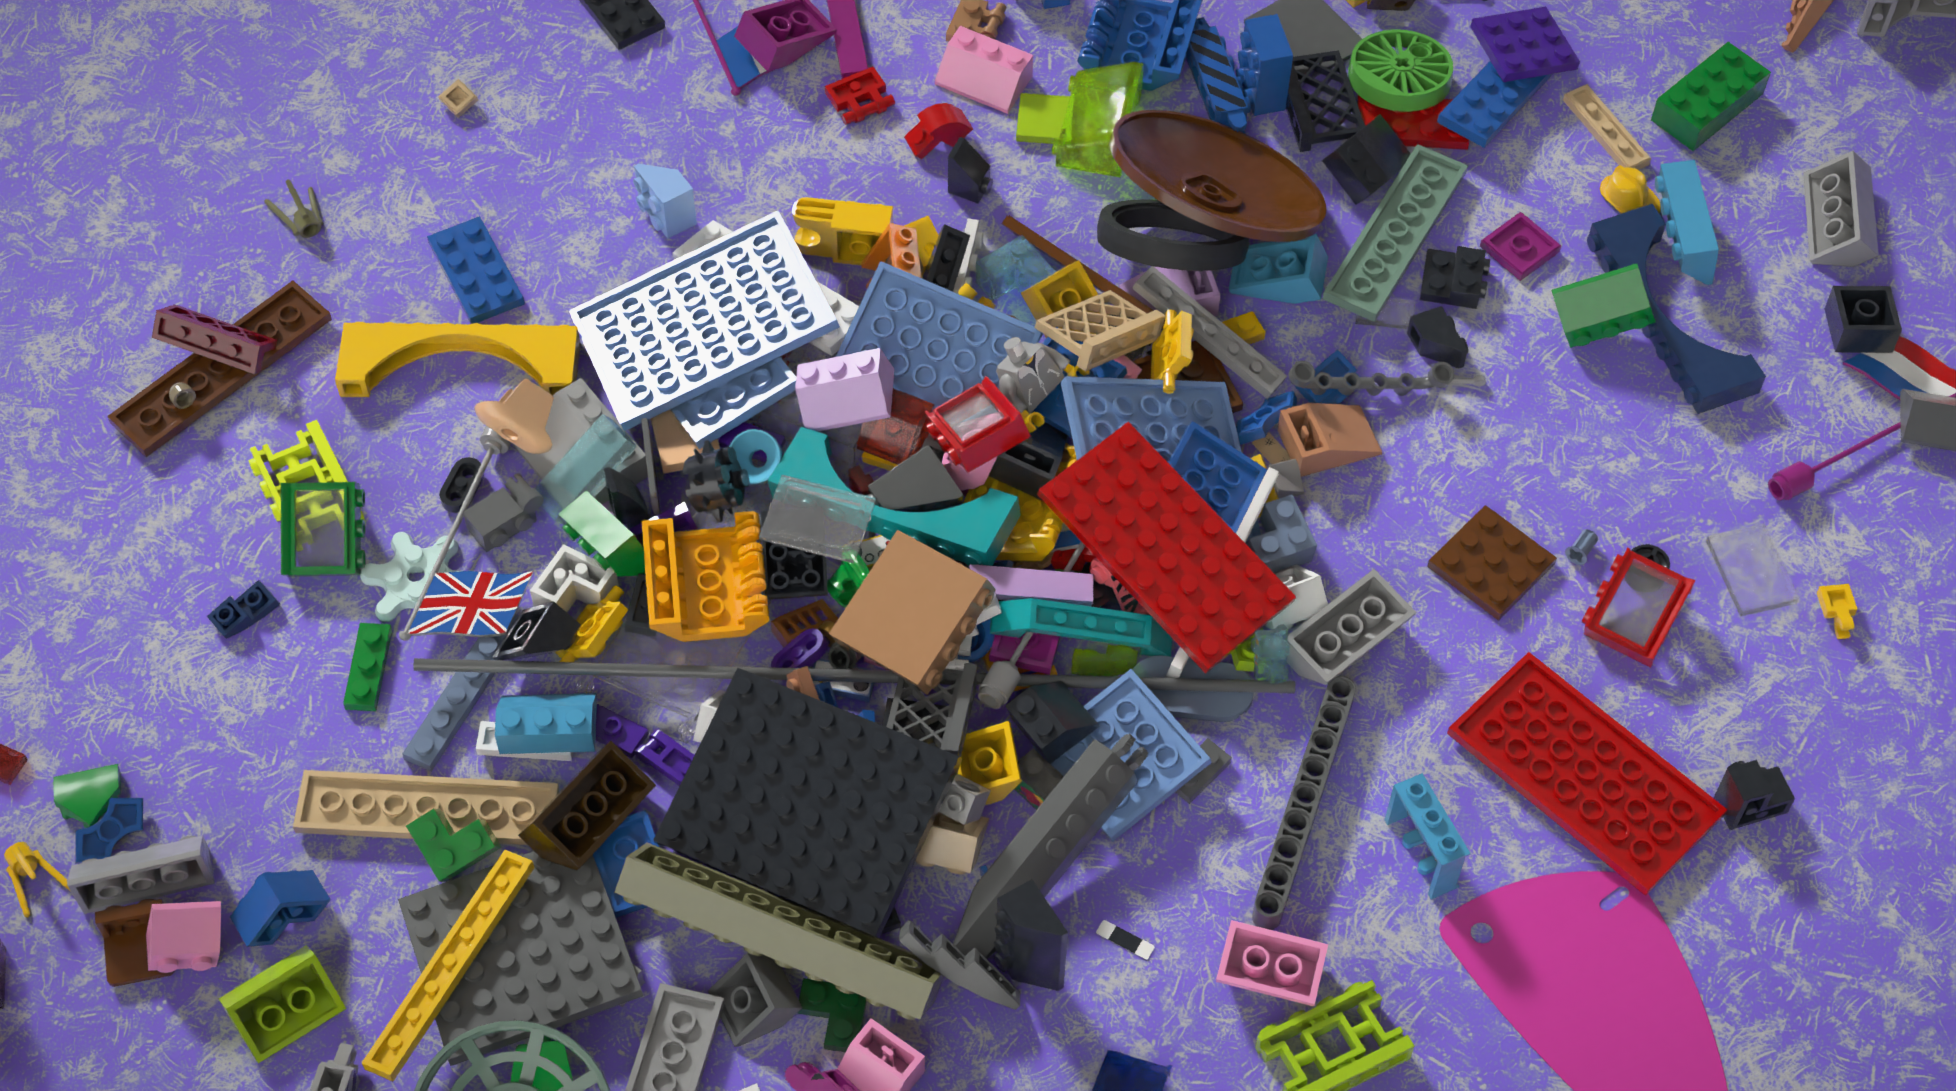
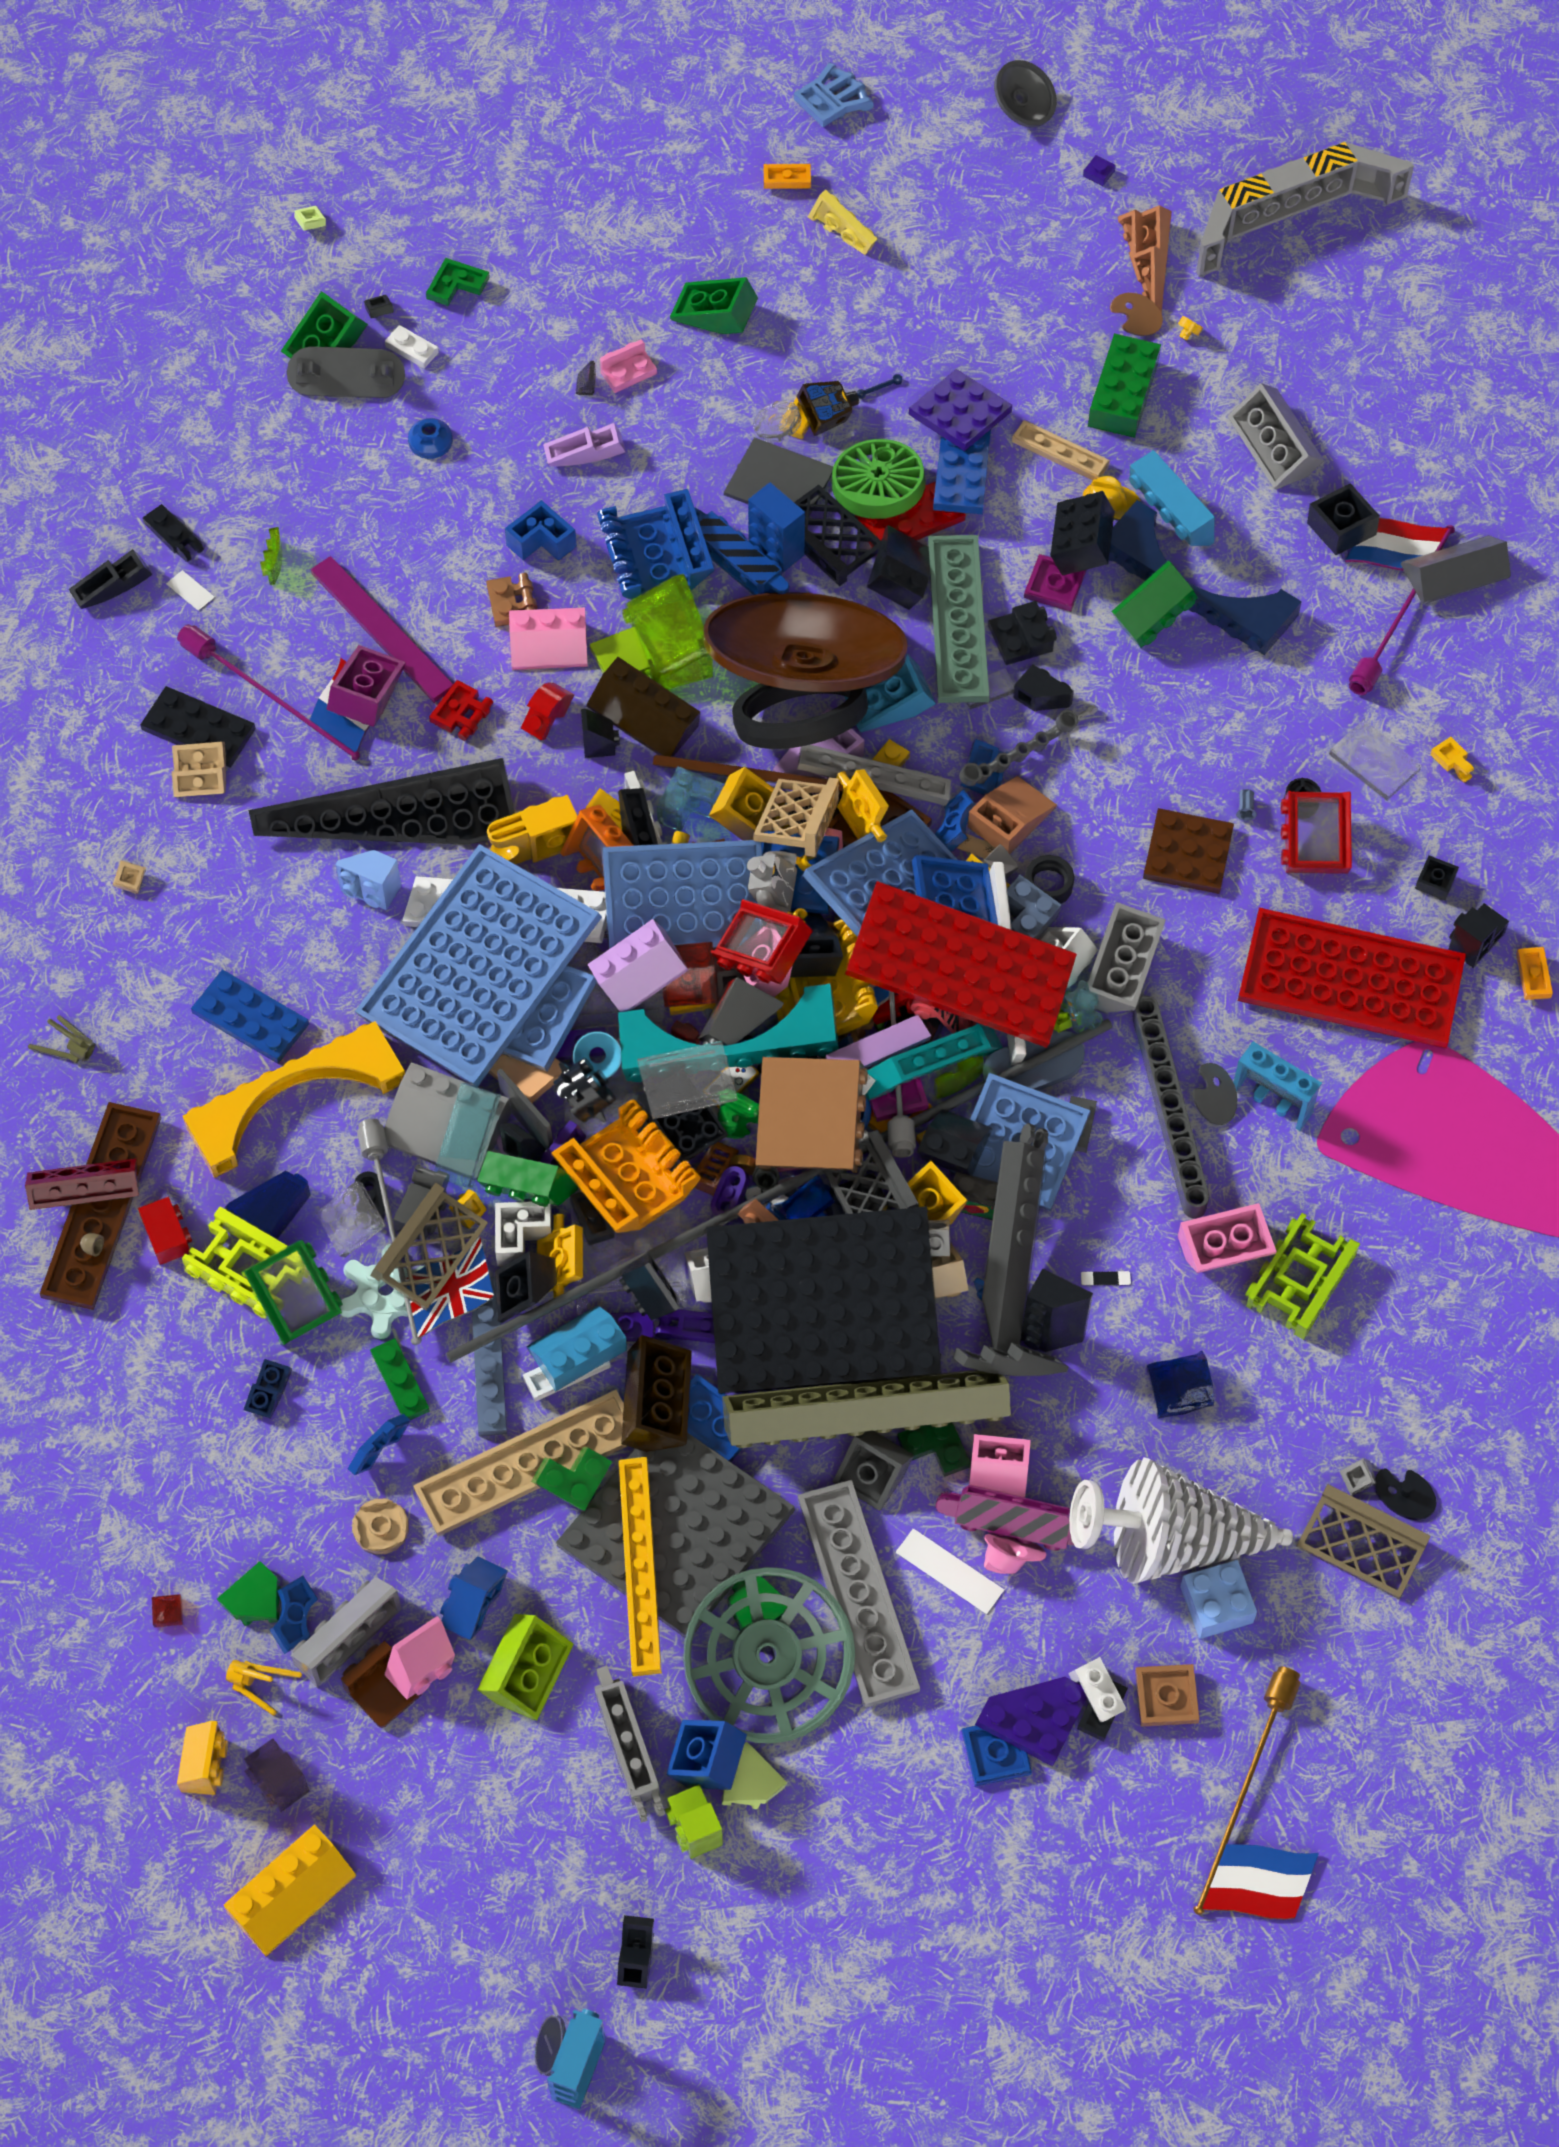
camera: 30 degrees left, 5 degrees up
(250, 793) = (380, 1526): none -> tan tile
(257, 417) = (164, 1230): none -> red brick
(286, 714) = (386, 1435): none -> blue tile
(368, 444) = (272, 1203): none -> clear blue slope
(427, 493) = (350, 1219): none -> clear plate
(457, 533) = (412, 1230): none -> dark tan fence
(520, 416) = (391, 1118): light nougat piece -> none
(542, 540) = (472, 1202): none -> yellow tile
(586, 35) = (199, 769): none -> tan slope
(650, 698) = (649, 1287): none -> black slope
(747, 157) = (423, 808): none -> black wedge
(868, 699) = (809, 1200): none -> clear blue piece
(1029, 171) = (643, 708): none -> dark brown slope
(1333, 501) = (1056, 864): none -> black tyre
(1354, 822) = (1215, 1102): none -> dark grey piece
(1573, 207) = (1082, 533): none -> black brick
(1744, 717) = (1436, 877): none -> black piece
(1770, 45) = (1143, 317): none -> medium nougat piece
(1793, 868) = (1534, 973): none -> light orange plate
(1814, 72) = (1189, 327): none -> yellow tile

